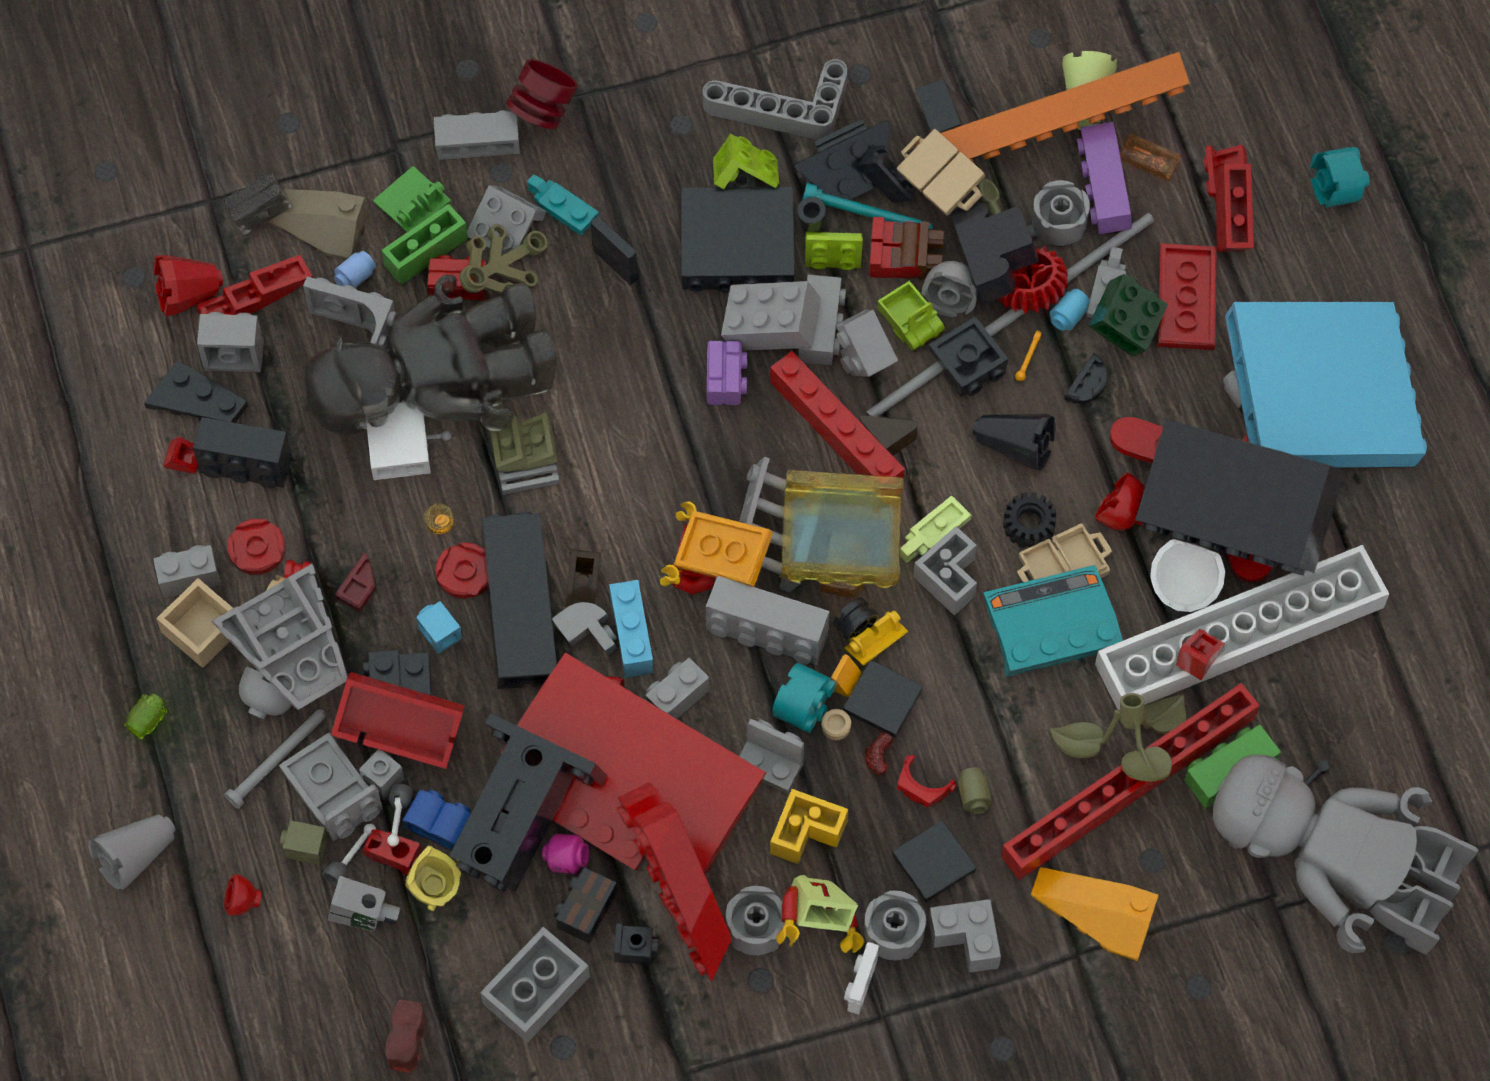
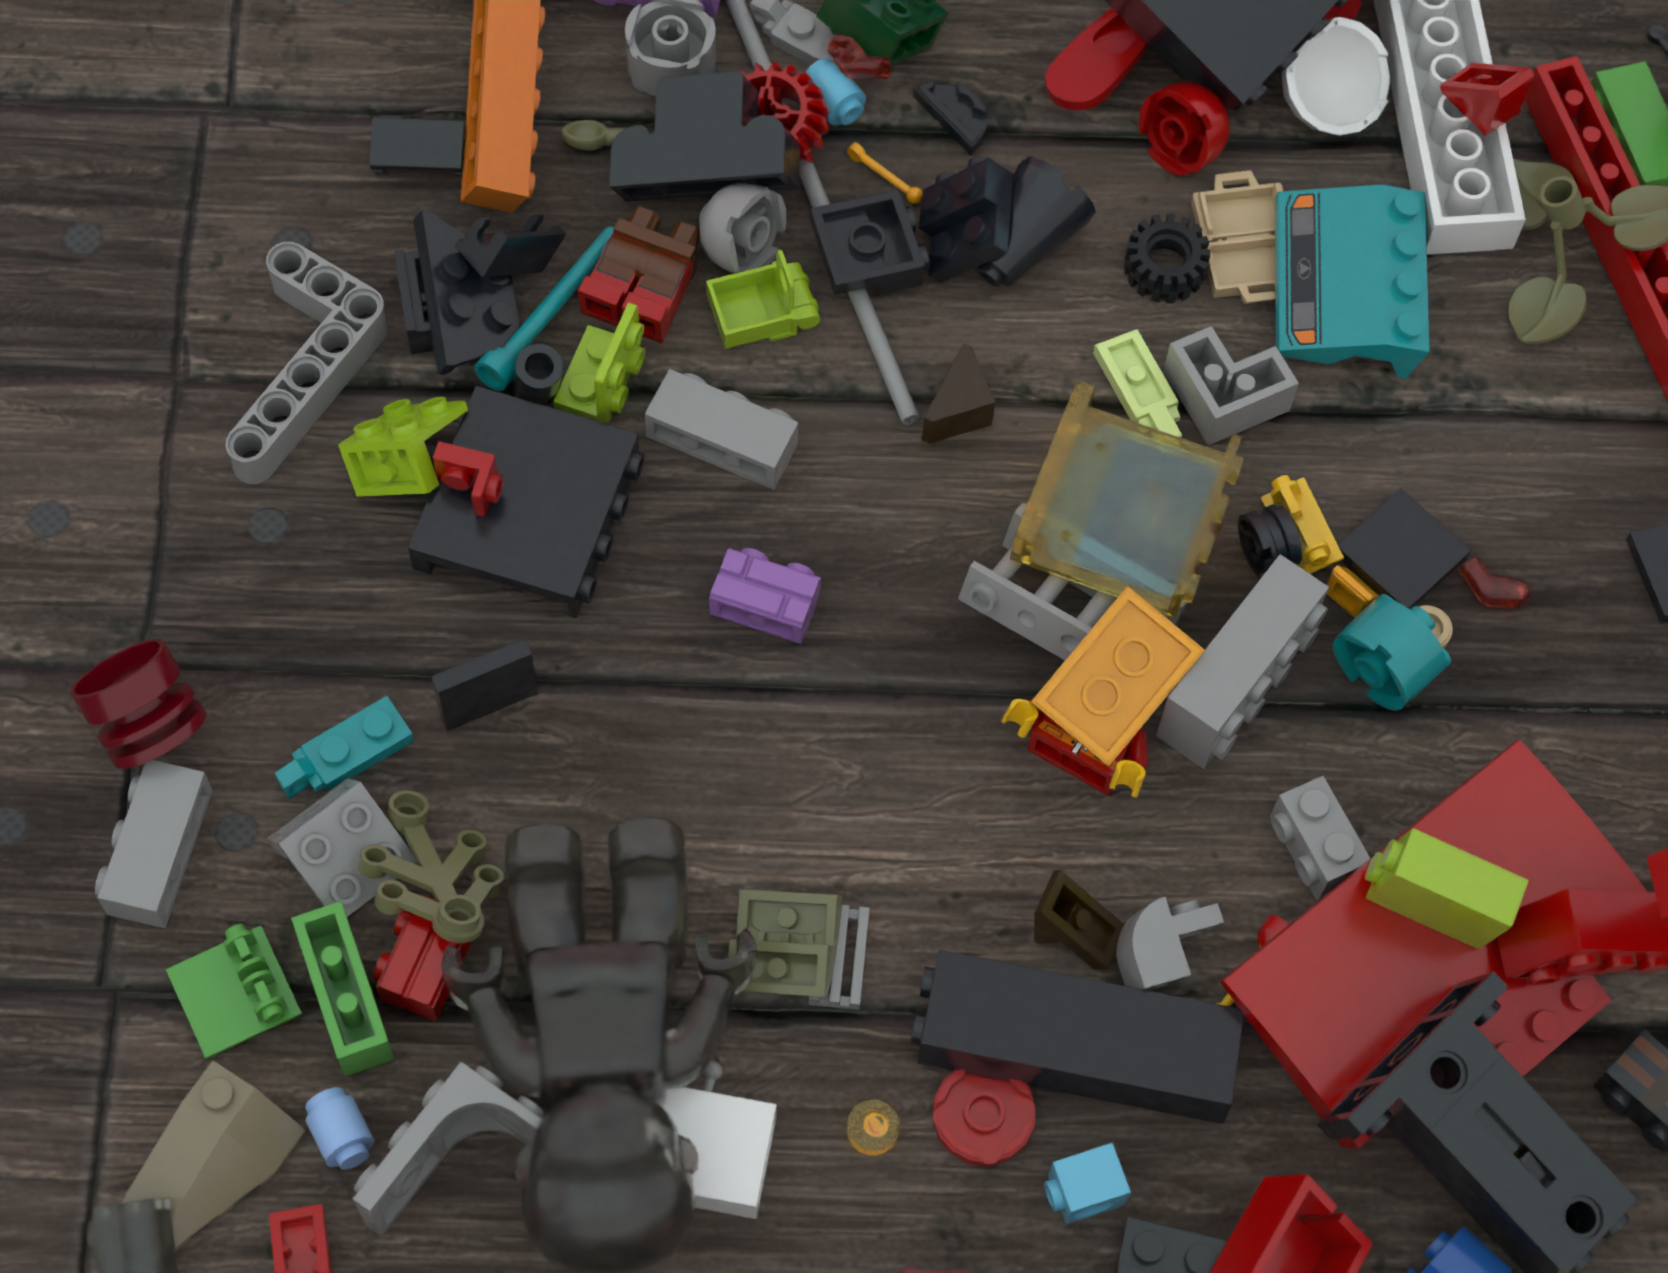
camera: 75 degrees left, 0 degrees up
(566, 853) = (1567, 1091): dark pink head -> none
(631, 628) = (1154, 866): medium azure arch -> none
(646, 739) = (1445, 888): none -> lime brick
(730, 204) = (466, 469): none -> red bracket
(771, 315) = (703, 486): light grey brick -> none
(774, 753) = (1467, 733): light grey bracket -> none
(805, 819) = (1597, 724): yellow brick -> none
(832, 419) = (918, 462): red brick -> none
(864, 345) = (817, 366): light grey brick -> none
(919, 793) = (1564, 558): red helmet -> none
(941, 172) = (531, 175): tan piece -> none
(974, 790) = (1594, 472): olive brick -> none
(1011, 398) = (967, 217): none -> black plate
(1087, 308) = (854, 61): none -> clear red arm

